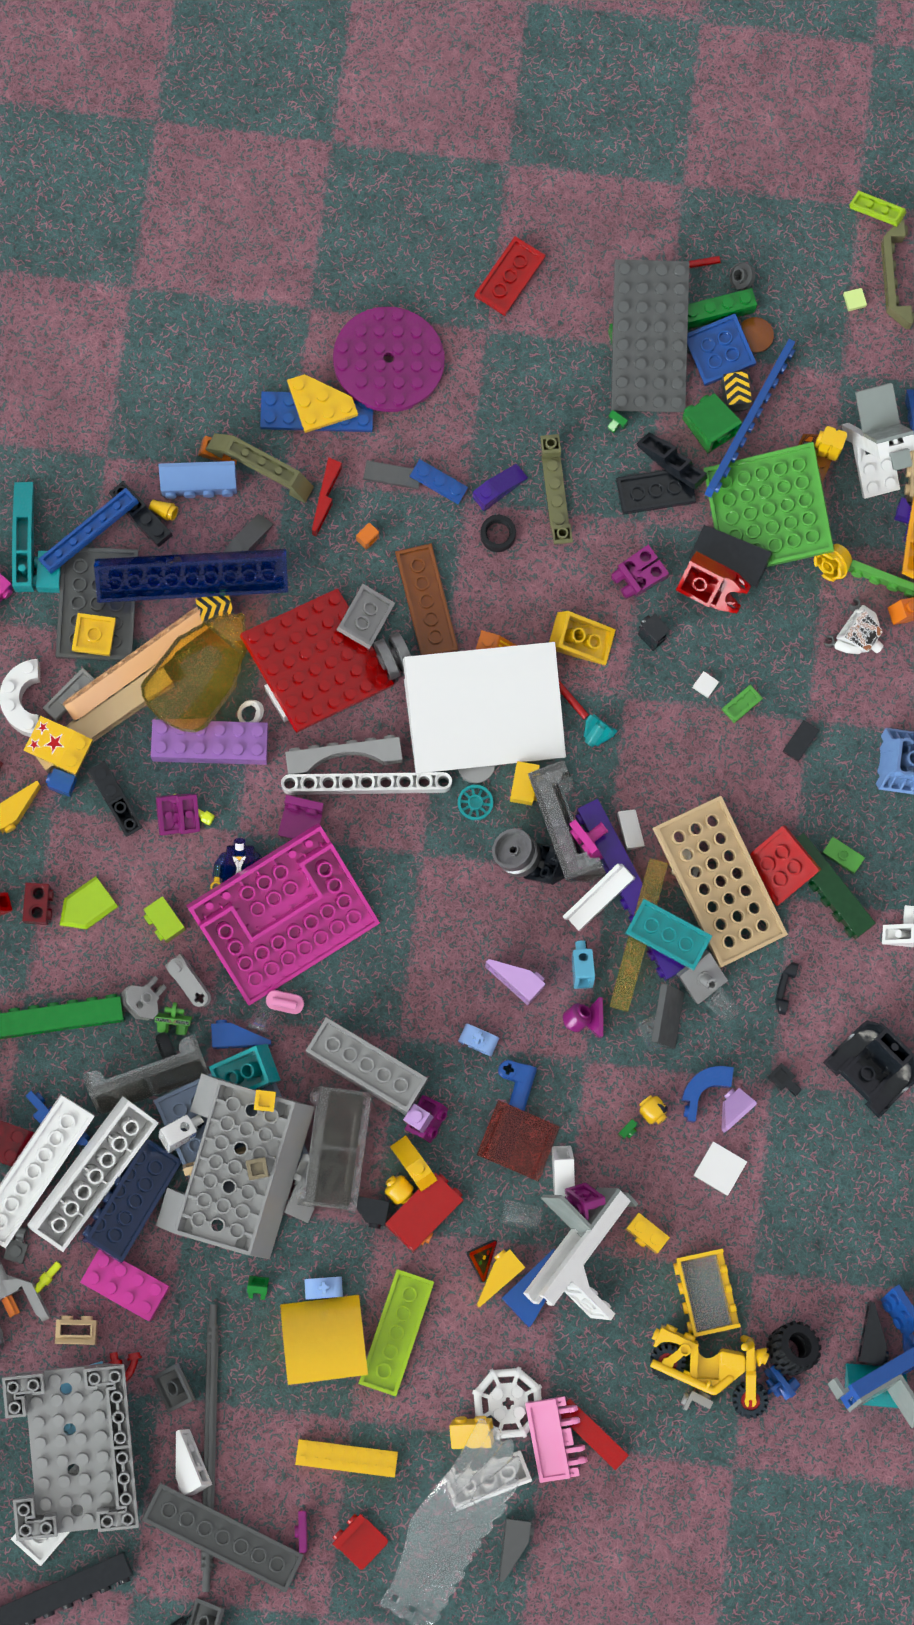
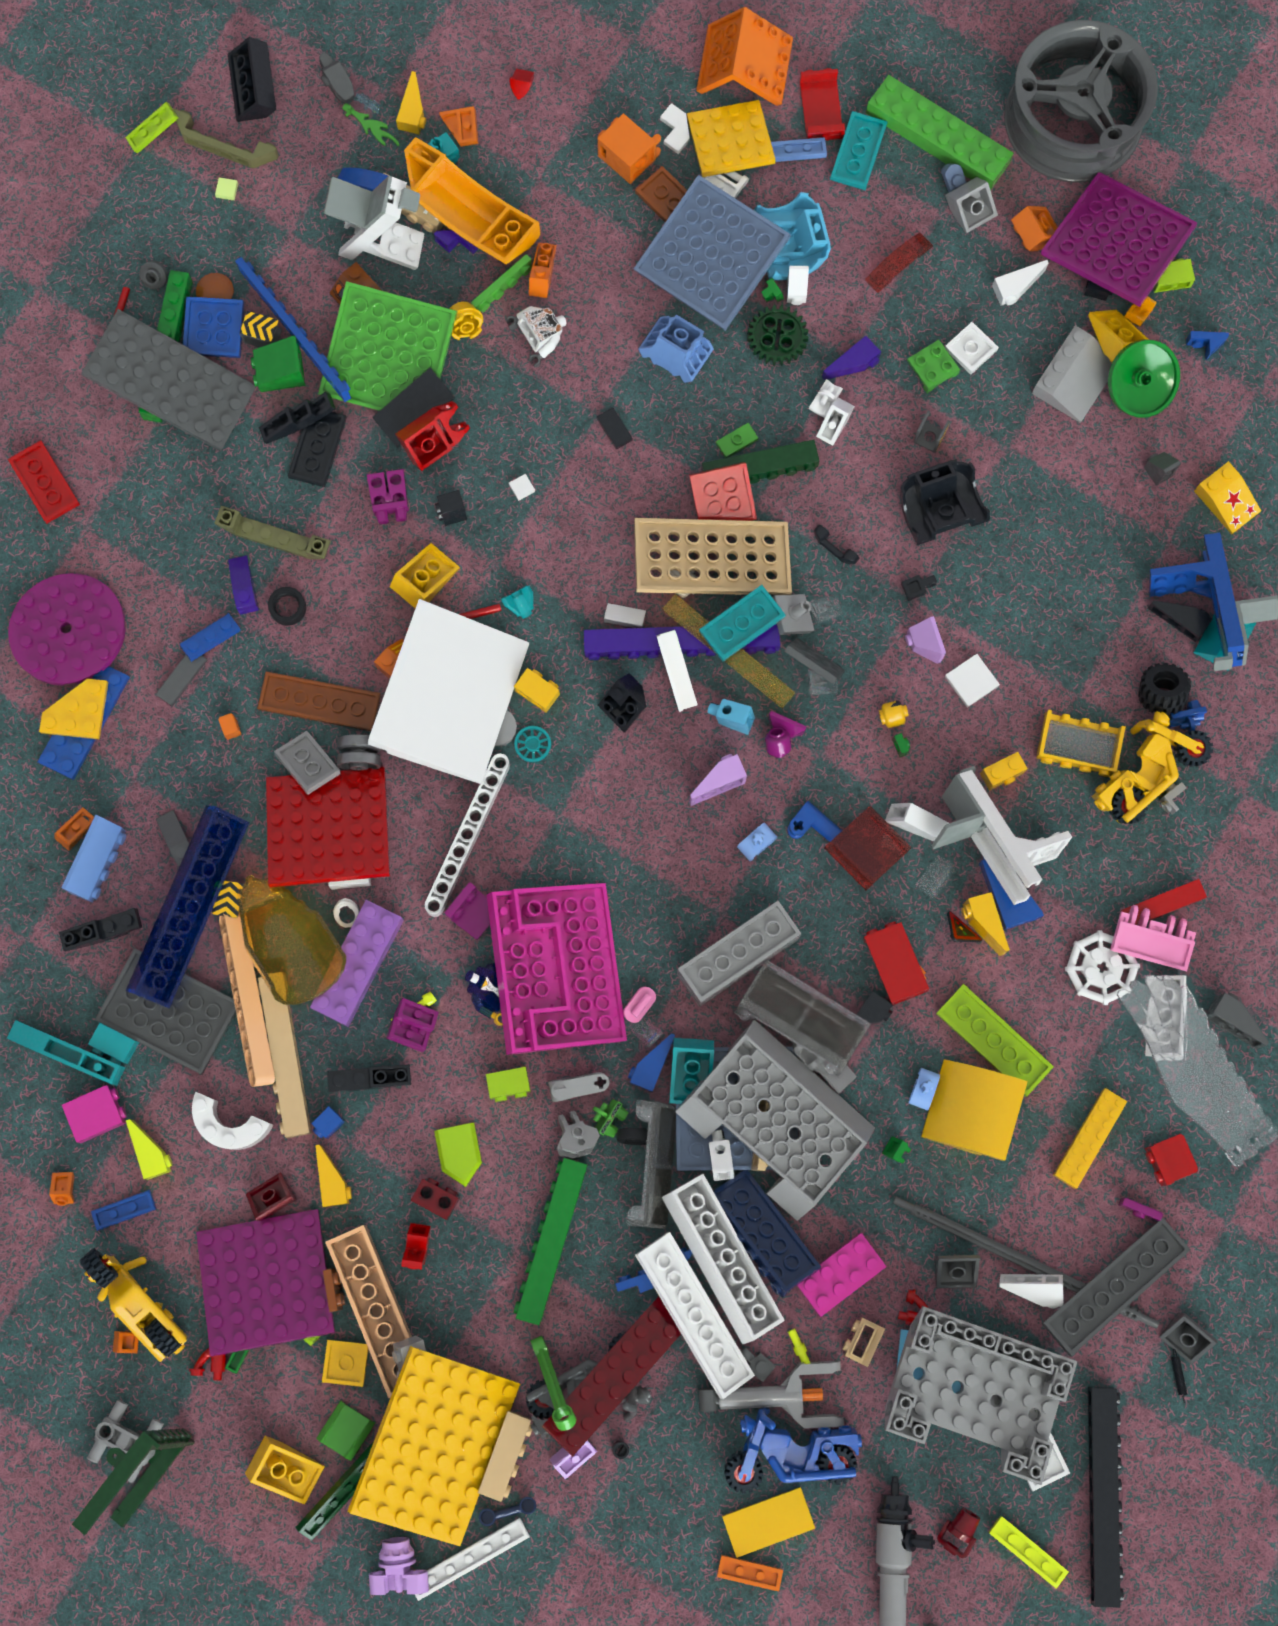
camera: 60 degrees left, 0 degrees up
(55, 705) = (249, 1095): light grey tile -> none
(58, 745) = (292, 1108): yellow slope -> none
(88, 530) = (93, 986): blue tile -> none
(93, 634) = (198, 1027): yellow plate -> none
(164, 509) = (107, 905): yellow cone -> none
(257, 1168) = (791, 1097): dark tan plate -> none
(261, 462) = (108, 791): olive slope -> none
(265, 1100) = (731, 1060): yellow plate -> none
(325, 503) = (149, 730): red slope -> none
(384, 751) = (444, 805): light grey arch -> none
(398, 1189) = (864, 977): yellow head -> none
(413, 1163) = (846, 952): yellow slope -> none
(418, 1118) = (808, 927): lavender brick -> none
(439, 1113) = (810, 922): magenta bracket -> none
(462, 1428) = (1114, 1015): yellow brick -> none
(516, 852) = (600, 726): flat silver wheel -> none
(549, 788) = (552, 667): clear windscreen -> none
(583, 1198) = (951, 809): magenta bracket -> none
(588, 839) = (620, 654): dark pink plate -> none
(616, 421) = (234, 449): green tile -> none
(711, 1077) = (888, 662): blue arch -> none
(742, 704) = (555, 463): bright green plate -> none
(830, 443) = (355, 265): yellow brick -> none

